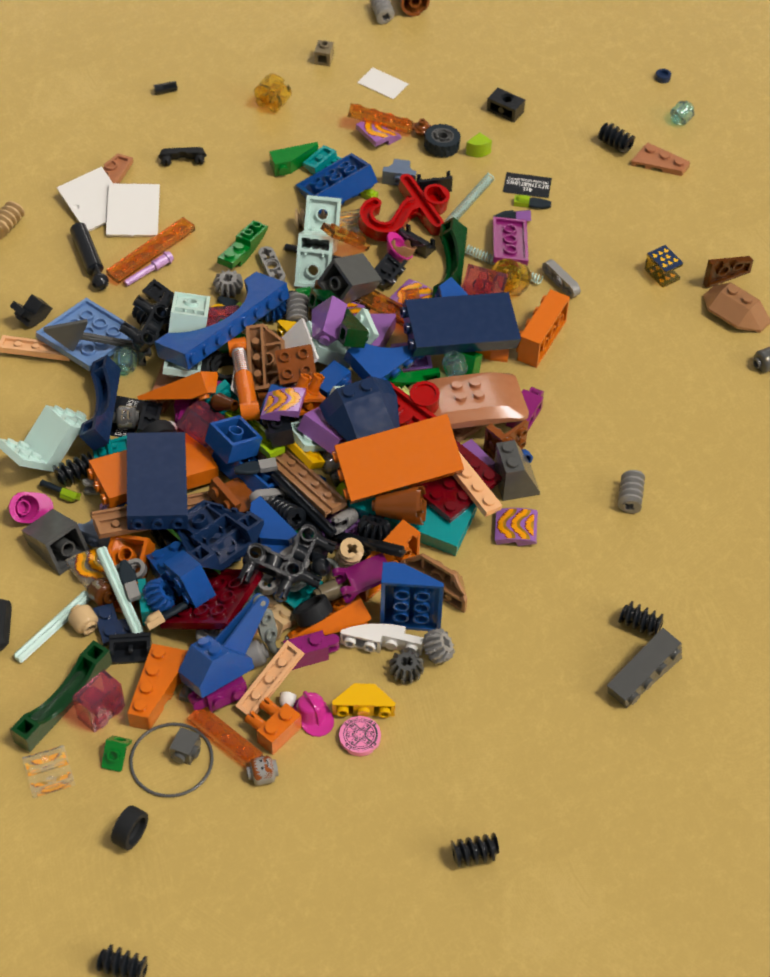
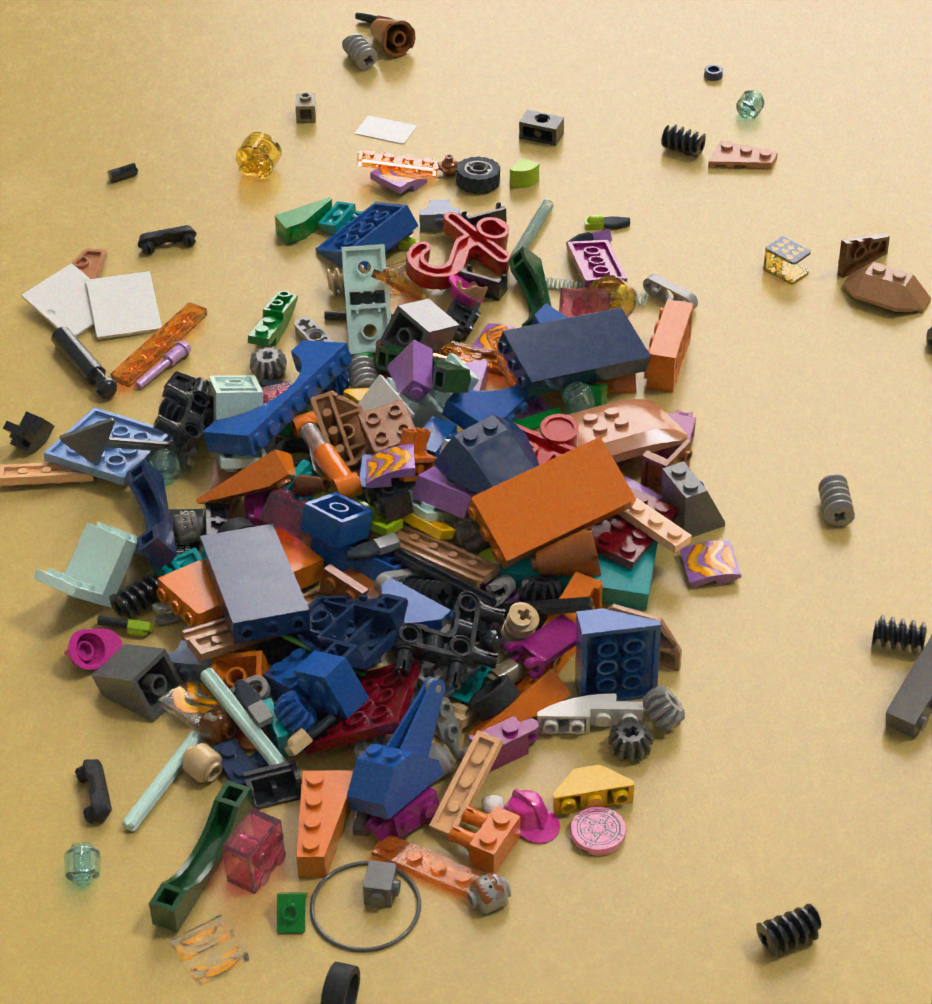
camera: 10 degrees left, 10 degrees down
(527, 185) = (594, 205): black sticker -> none

